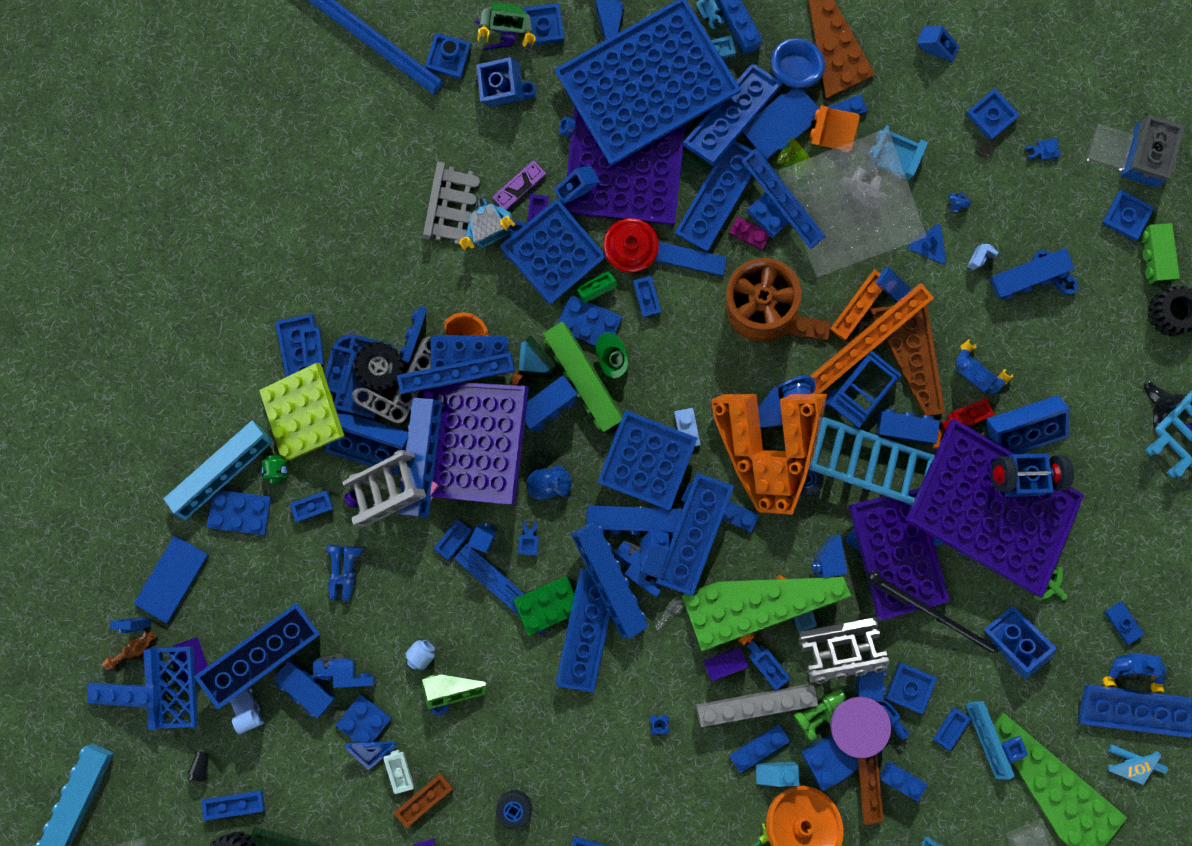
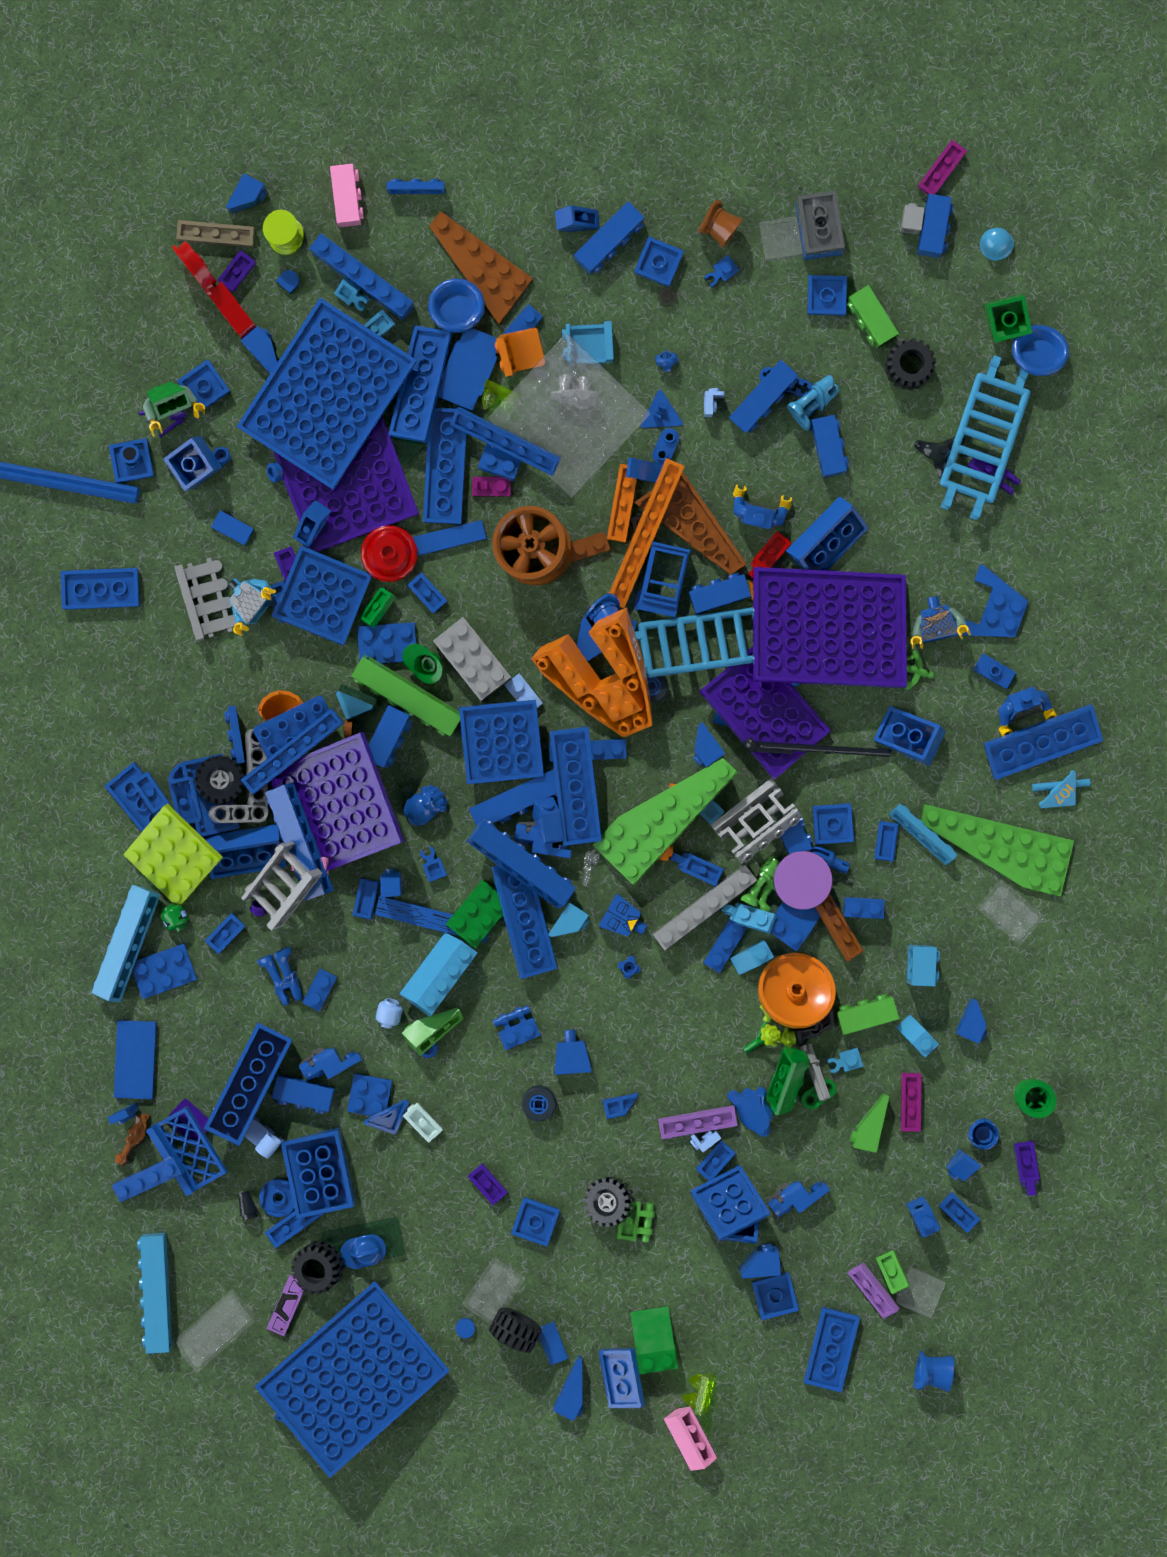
camera: 25 degrees left, 5 degrees up
(222, 778) = (268, 1198): none -> blue plate
(279, 771) = (318, 1173): none -> blue slope
(363, 150) = (100, 588): none -> blue plate
(369, 600) = (319, 989): none -> blue plate
(423, 800) = (456, 1135): dark orange plate -> none
(483, 642) = (438, 973): none -> dark azure slope
(505, 156) = (232, 528): none -> blue tile
(519, 185) = (259, 549): medium lavender tile -> none
(527, 733) = (518, 1033): none -> blue plate
(566, 780) = (571, 1055): none -> blue torso
(626, 655) = (570, 921): none -> dark azure slope
(657, 374) = (472, 659): none -> light grey brick
(676, 676) = (622, 917): none -> blue torso
(725, 663) = (660, 884): dark purple panel -> none
(795, 736) = (750, 917): none -> dark azure hinge
(921, 273) = (665, 446): none -> blue plate
(959, 73) = (609, 238): none -> blue brick
(1014, 749) = (946, 831): blue tile -> none
(1031, 474) = (843, 584): brick -> none
(1064, 106) = (719, 223): none -> dark orange hat
(1068, 346) = (829, 446): none -> blue brick
(1082, 298) = (821, 394): none -> dark azure piece
(1095, 554) = (938, 623): none -> torso
(1156, 572) = (1002, 610): none -> blue wing

